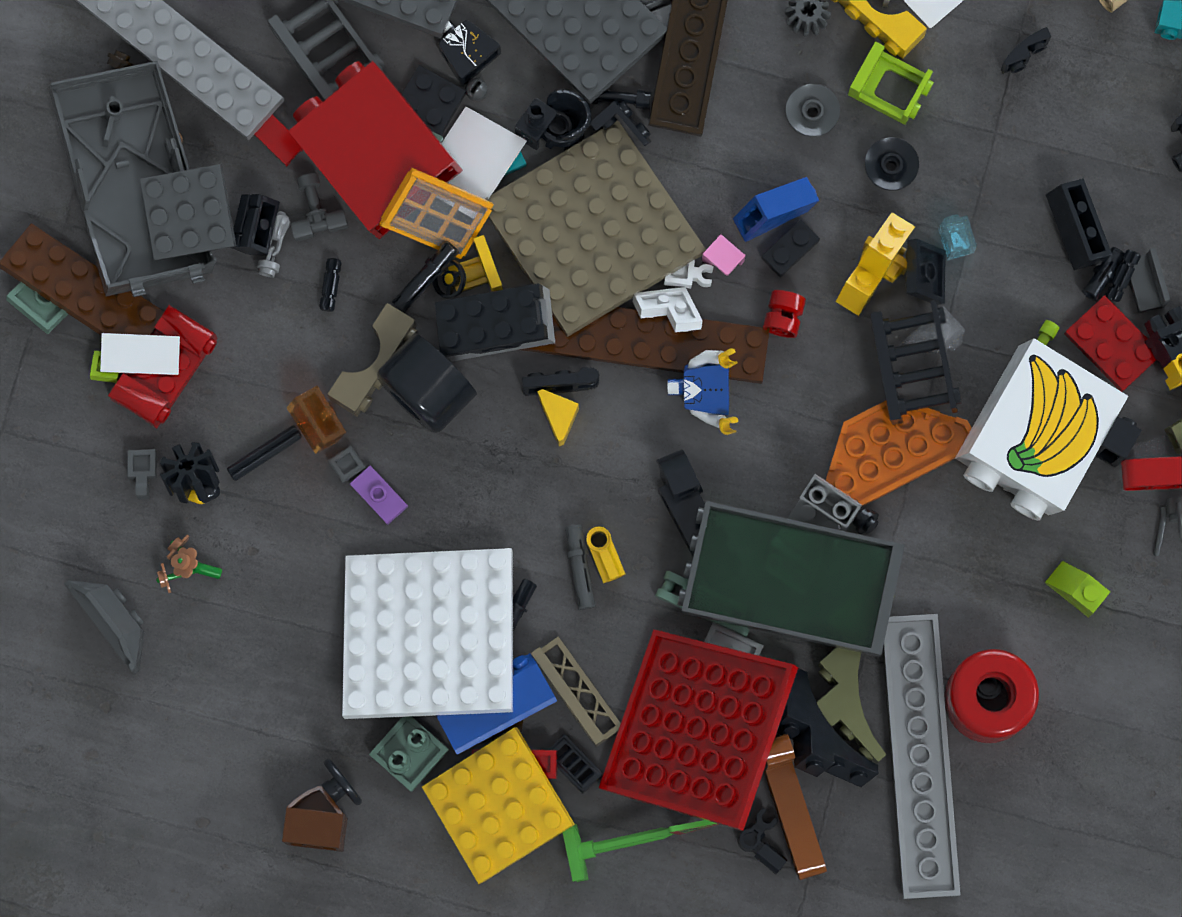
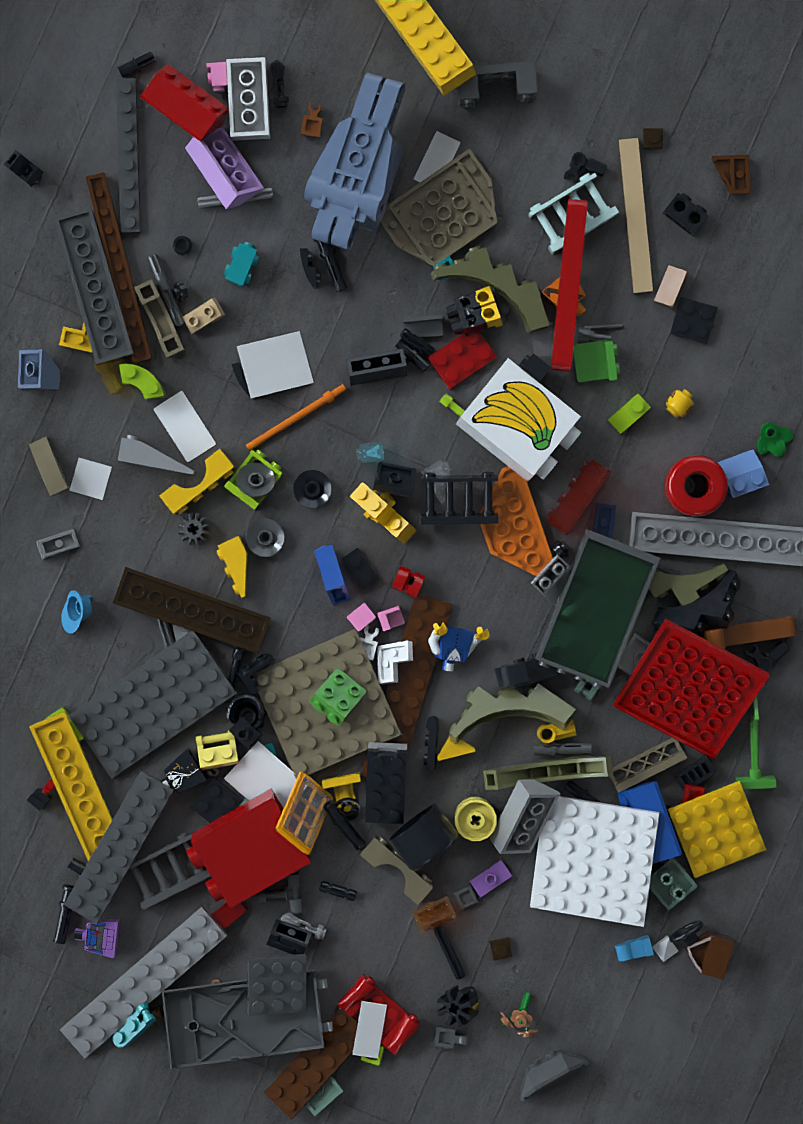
camera: 85 degrees left, 10 degrees up
(101, 33) = (134, 1026): none -> teal plate
(279, 525) = (500, 948): none -> dark brown plate
(306, 714) = (634, 948): none -> dark azure leg
(311, 760) = (665, 948): none -> white slope
(459, 441) = (478, 829): none -> light yellow wheel
(475, 522) = (524, 817): none -> light grey slope
(497, 91) = (219, 755): none -> light yellow plate
(545, 543) = (548, 770): none -> olive arch
(607, 235) = (337, 696): none -> bright green bracket
(634, 478) = (537, 704): none -> olive arch
(728, 299) = (391, 618): none -> bright pink panel
(775, 76) = (236, 559): none -> yellow slope
(899, 84) = (255, 473): none -> dark grey dish
(920, 576) = (604, 519): none -> dark blue plate
(945, 533) = (578, 497): none -> clear red slope
(1018, 765) = (743, 473): none -> medium blue slope
(1022, 167) = (327, 397): none -> orange bar
(1056, 87) = (275, 364): none -> white sticker
(1073, 805) = (775, 442): none -> green plate
(1104, 658) = (679, 403): none -> yellow head
(1144, 528) = (596, 360): none -> bright green bracket

